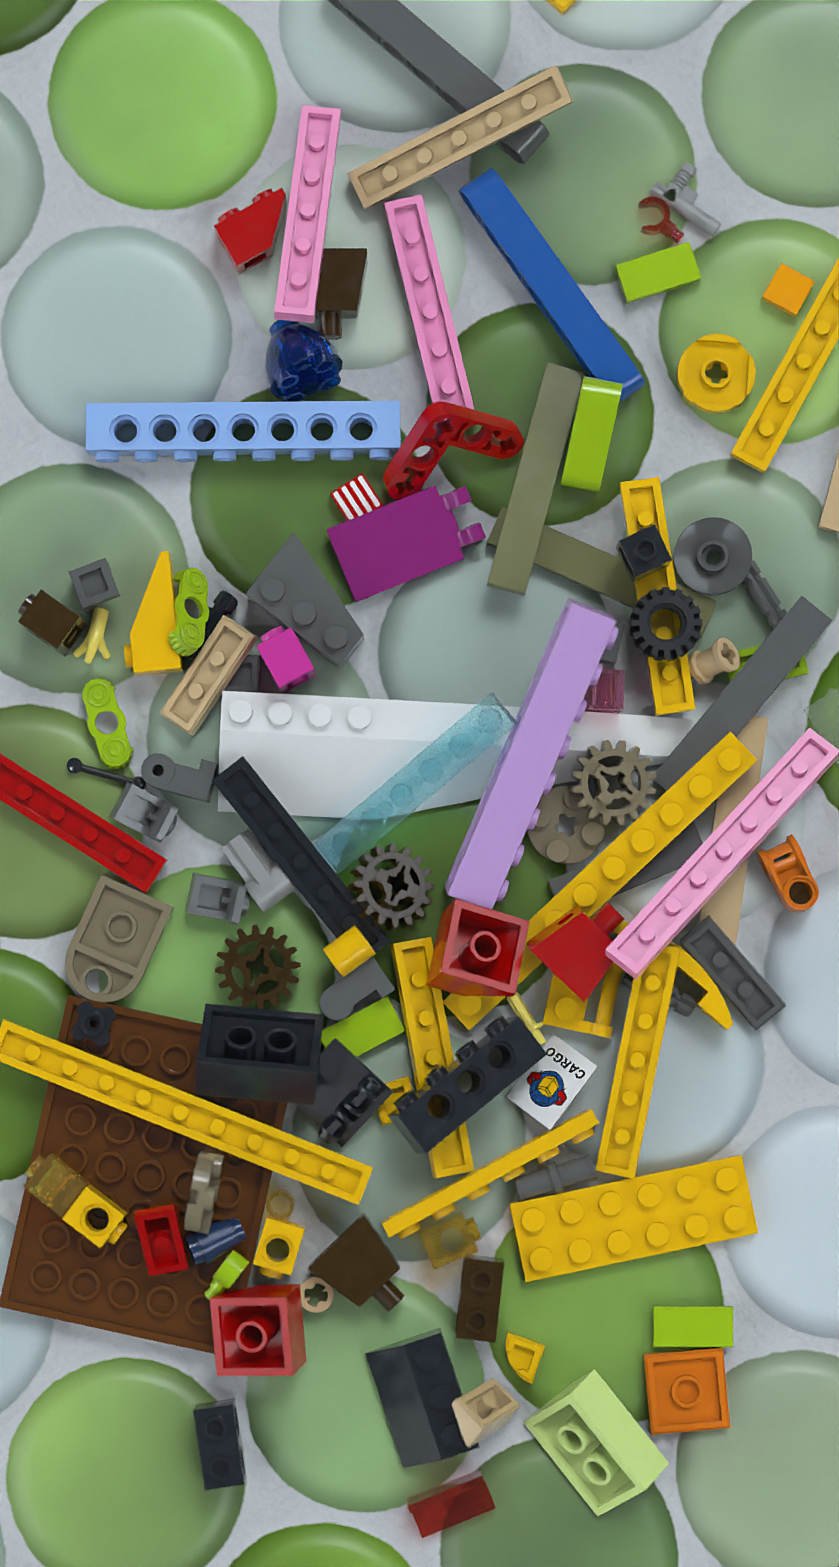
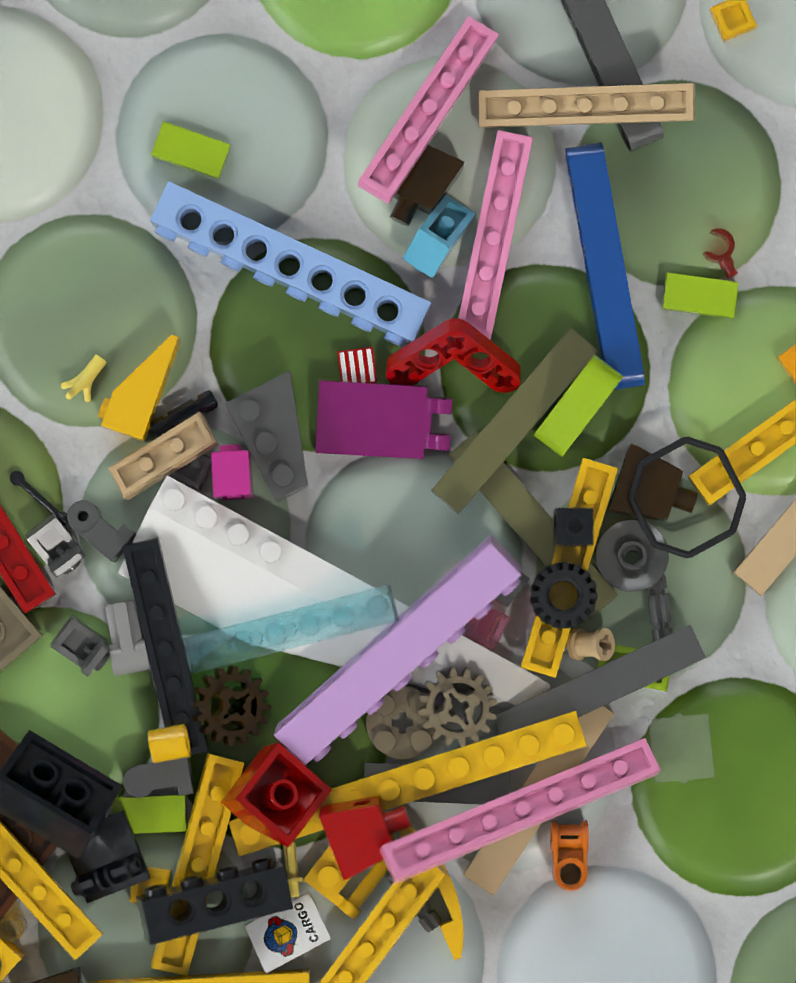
camera: 25 degrees right, 0 degrees up
(51, 621) = (52, 350): dark brown brick -> none
(92, 364) = (191, 150): none -> lime tile
(94, 584) = (103, 335): dark grey panel -> none
(112, 747) = (57, 479): lime piece -> none
(190, 631) = (163, 412): lime piece -> none
(252, 233) = (377, 103): red slope -> none
(275, 973) = (76, 708): dark brown gear -> none
(300, 361) = (363, 230): clear blue piece -> none
(375, 334) = (438, 236): none -> medium azure slope
(685, 198) = (752, 244): light grey hose -> none
(697, 482) = (656, 491): none -> dark brown torso
(706, 515) = (727, 465): none -> black piece
(731, 357) = (688, 410): yellow plate -> none
(732, 972) = (482, 913): dark grey tile -> none

